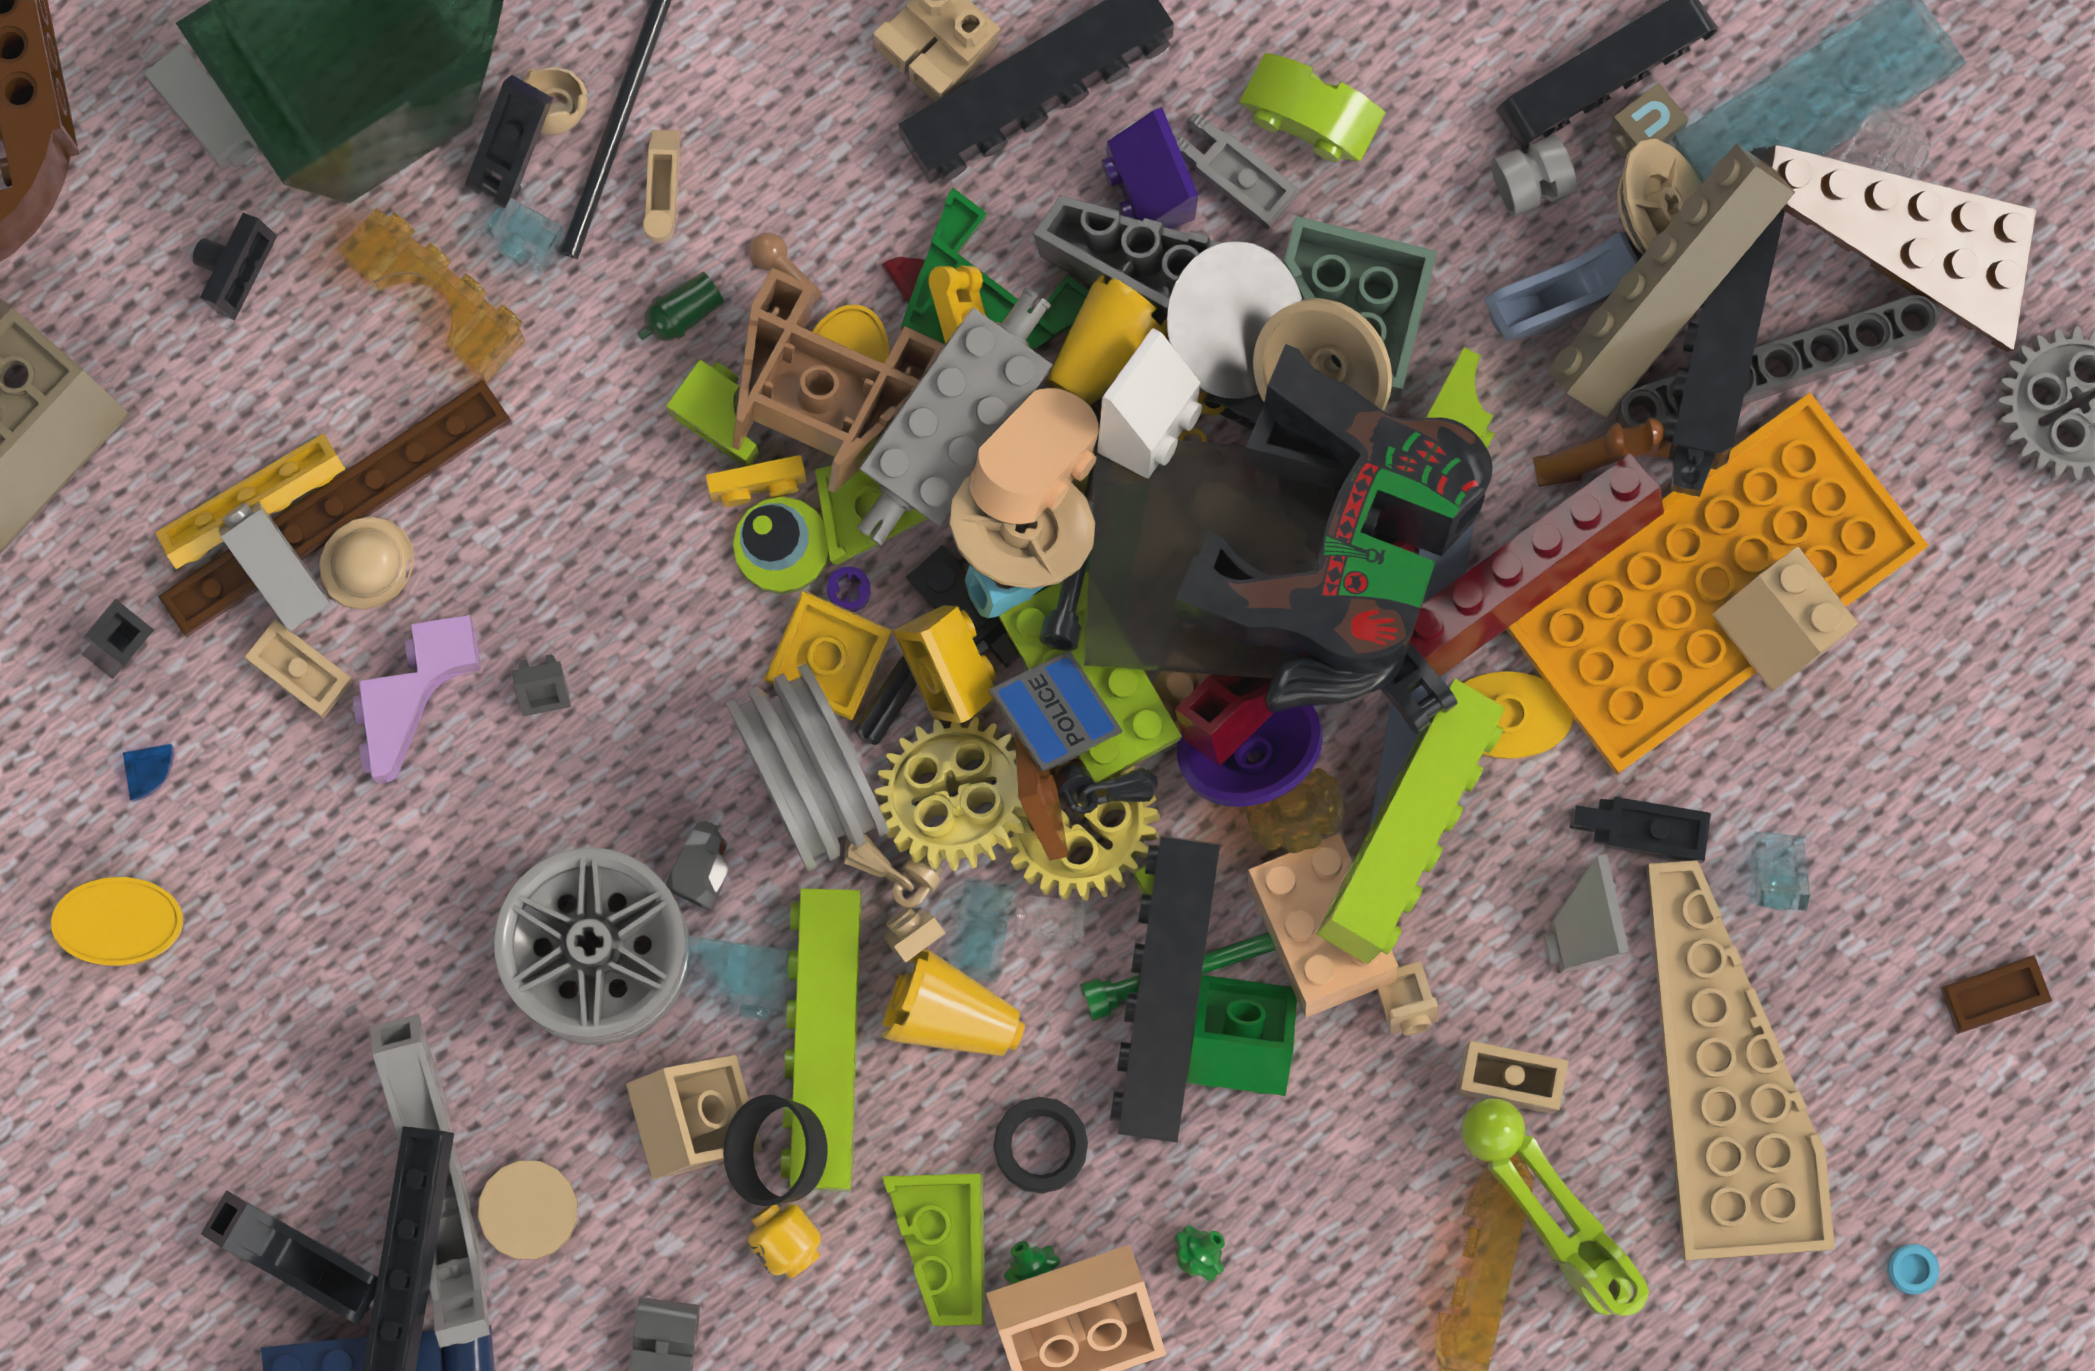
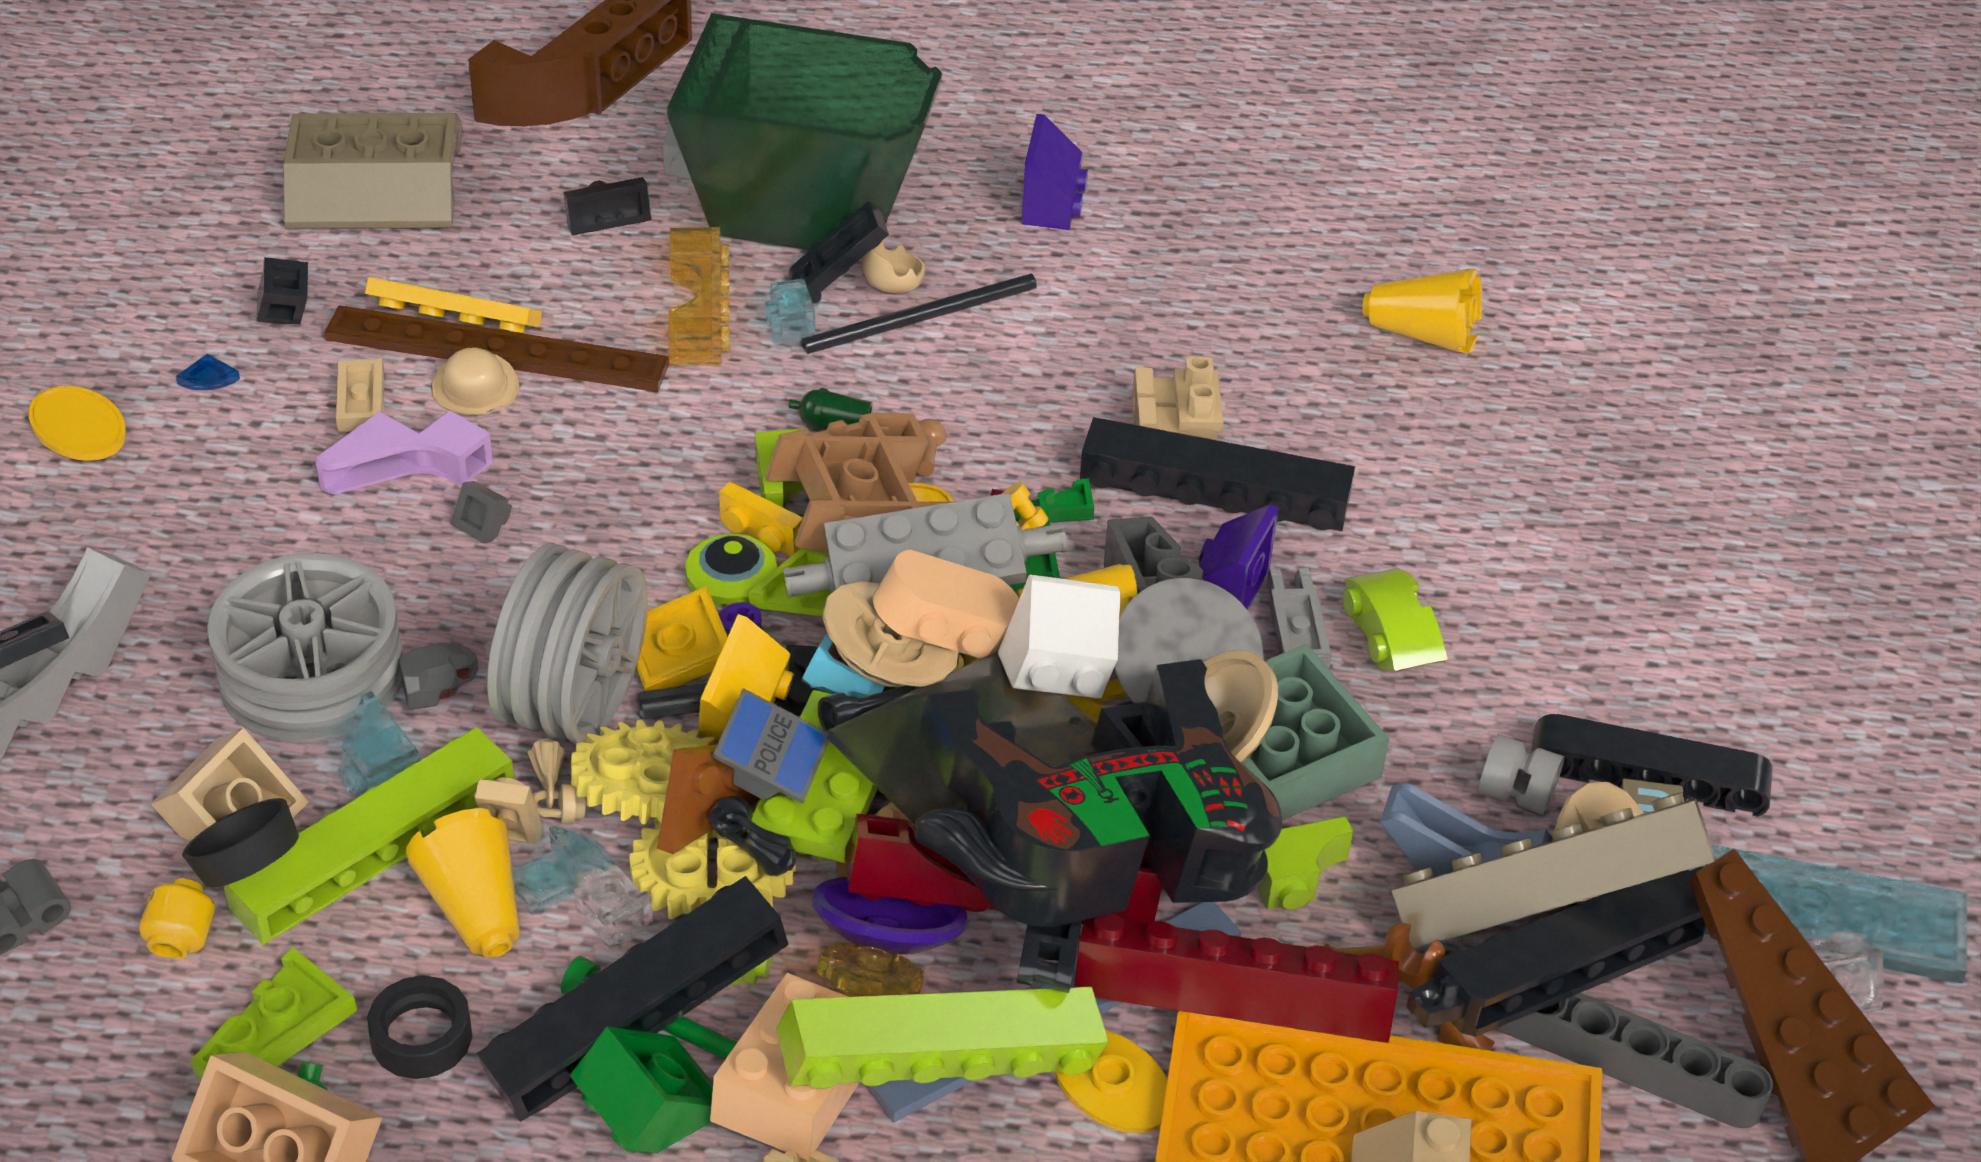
camera: 45 degrees right, 35 degrees down
(272, 564) = (417, 326): light grey brick -> none
(528, 1210) = (58, 763): tan tile -> none
(662, 185) = (902, 353): tan piece -> none

